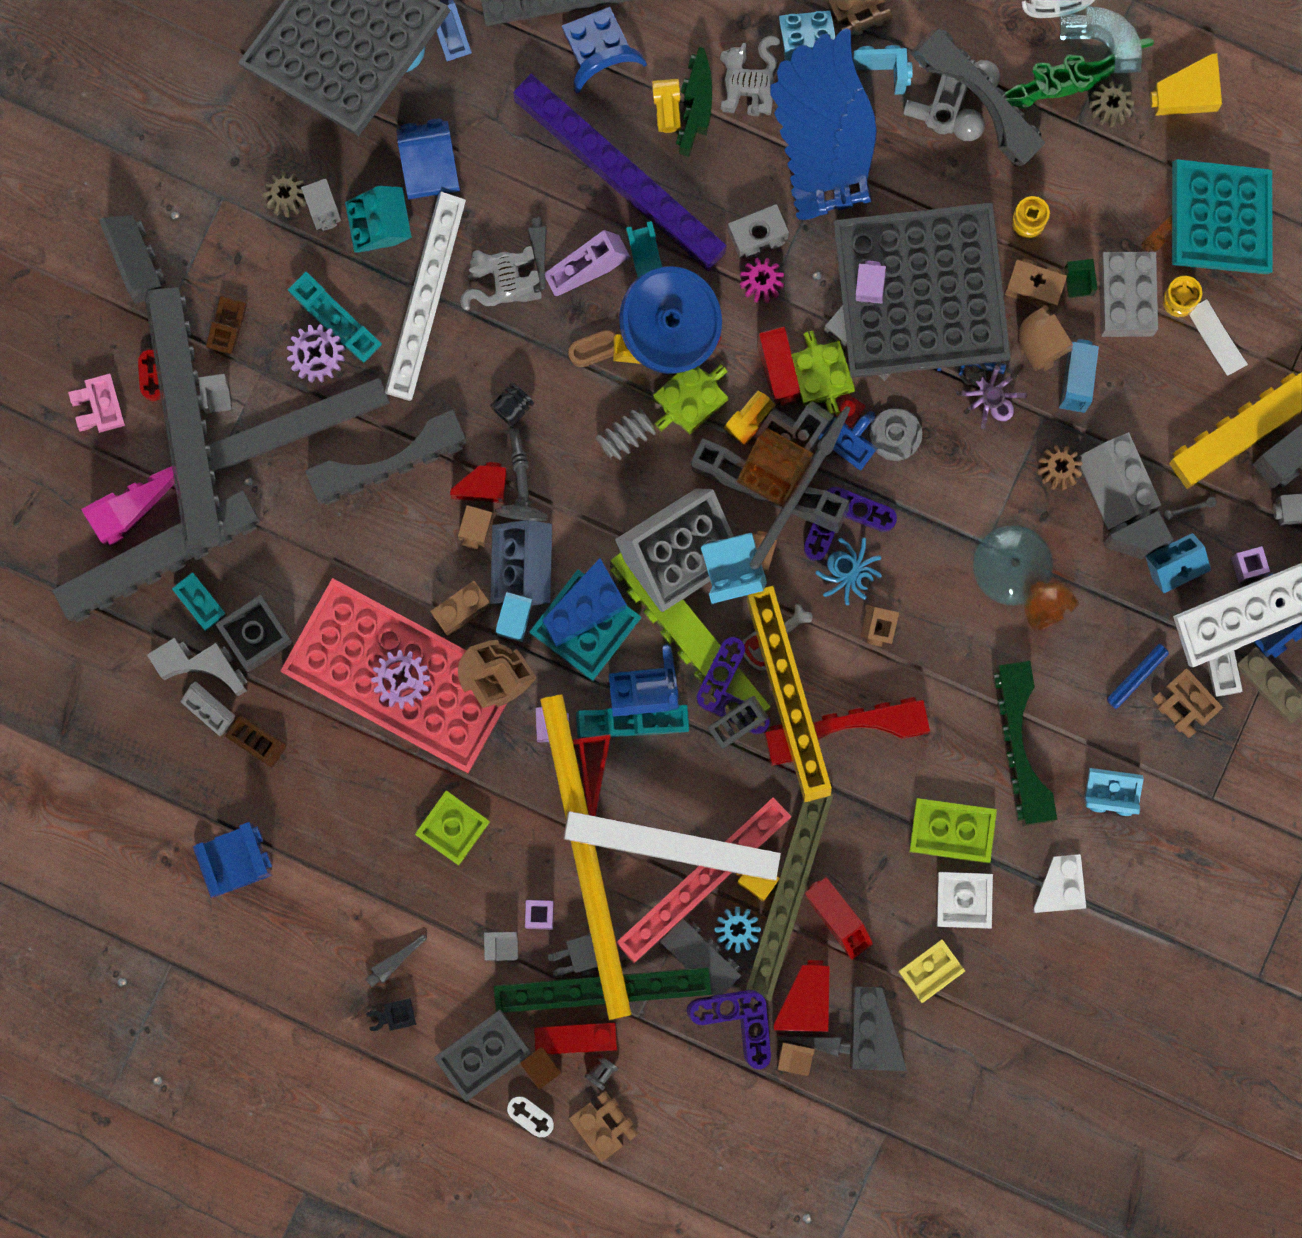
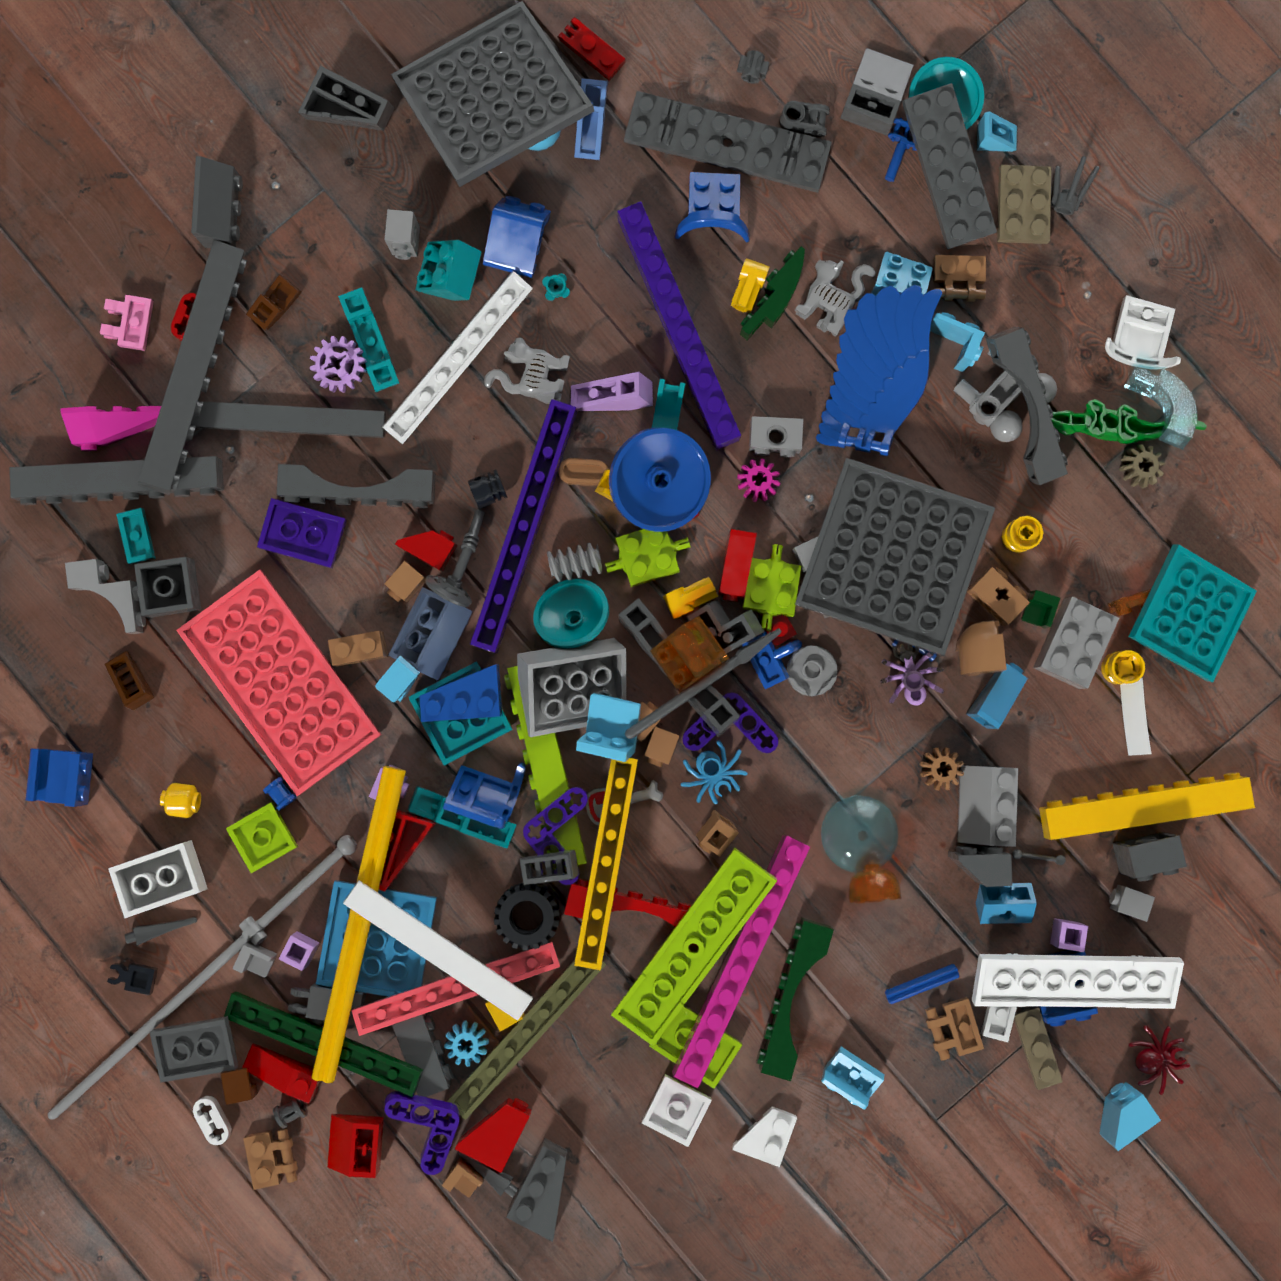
camera: 20 degrees right, 5 degrees up
(207, 708) = (99, 633): light grey plate -> none
(209, 108) = (344, 103): none -> dark grey wedge
(215, 393) = (234, 359): light grey panel -> none
(277, 201) = (368, 209): dark tan gear -> none
(355, 526) = (301, 533): none -> dark purple plate
(359, 828) = (180, 800): none -> yellow head
(373, 909) = (158, 879): none -> white brick
(388, 674) = (266, 680): lavender gear -> none
(450, 779) = (279, 793): none -> blue bush
(484, 921) = (252, 932): none -> light grey bar
(486, 181) = (550, 282): none -> teal plate
(494, 673) = (356, 722): medium nougat brick -> none
(538, 240) = (580, 352): dark grey piece -> none
(563, 423) = (524, 526): none -> dark purple brick
(630, 880) = (386, 964): none -> dark azure plate
(641, 473) = (564, 605): none -> teal dish
(676, 1072) = (355, 1145): none -> red slope
(738, 758) = (527, 938): none -> black tyre
(788, 568) = (661, 747): none -> medium nougat brick
(839, 918) = (558, 1074): red slope -> none
(870, 282) = (852, 529): lavender brick -> none
(900, 764) = (709, 923): none -> lime piece
(931, 971) = (618, 1158): light yellow plate -> none
(957, 728) = (738, 966): none -> dark pink brick
(1189, 90) = (1218, 486): yellow slope -> none

